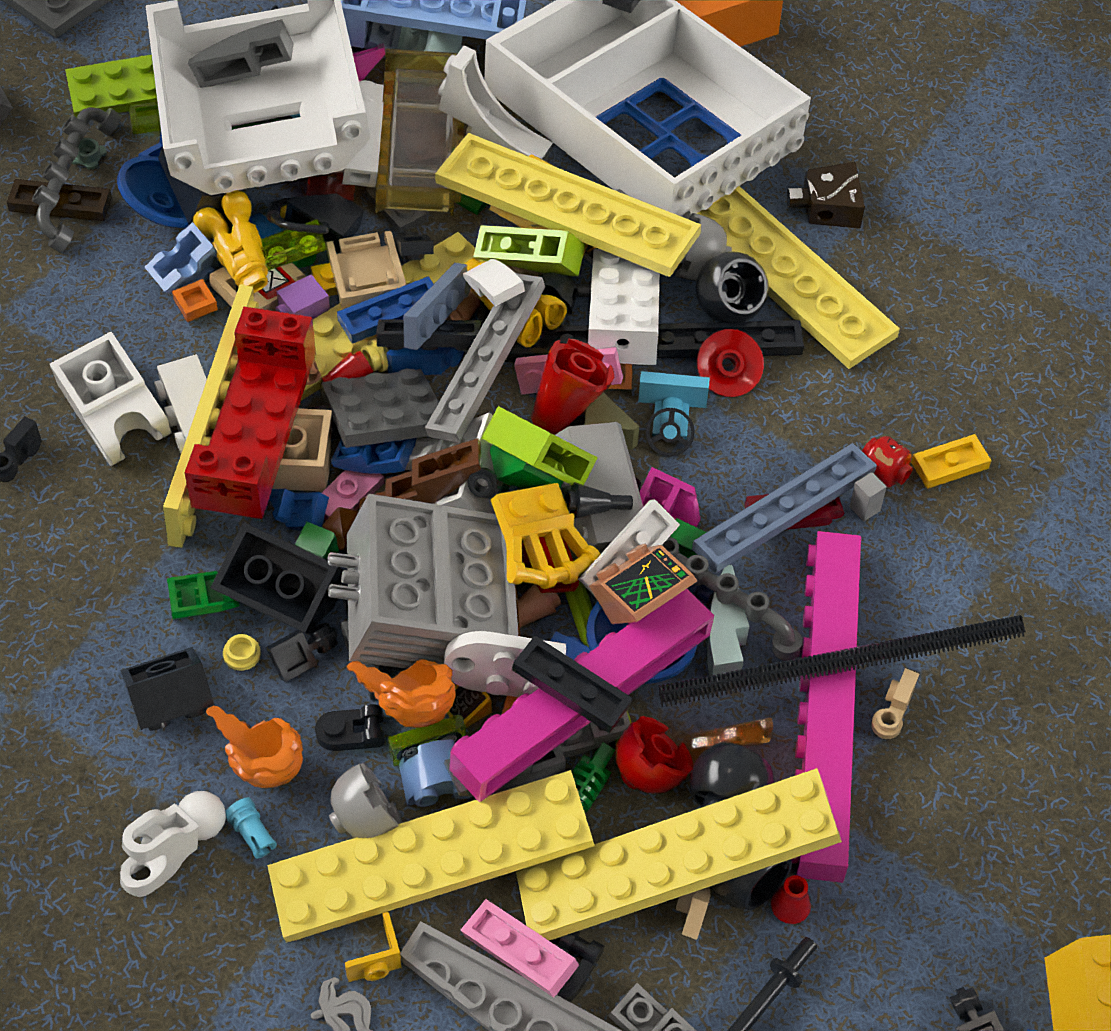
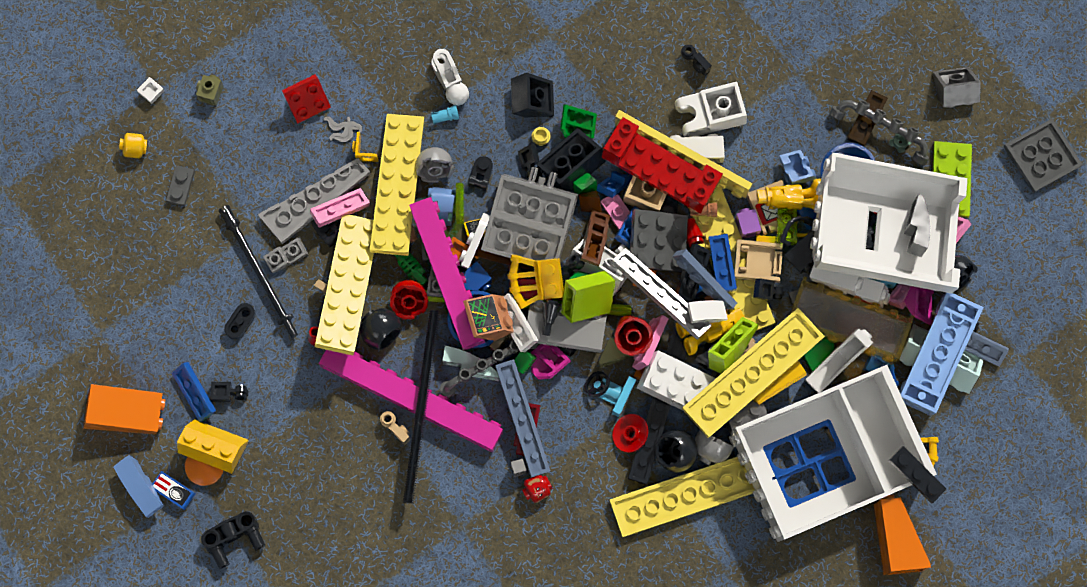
camera: 110 degrees right, 20 degrees up
(195, 300) = (770, 170): orange plate -> none
(263, 754) = (477, 127): orange hair -> none
(414, 696) = (477, 196): orange hair -> none
(572, 684) = (442, 260): black plate -> none
(744, 734) = (407, 339): clear orange slope -> none
(830, 196) = (733, 542): dark brown torso -> none
(951, 461) = (527, 525): yellow plate -> none

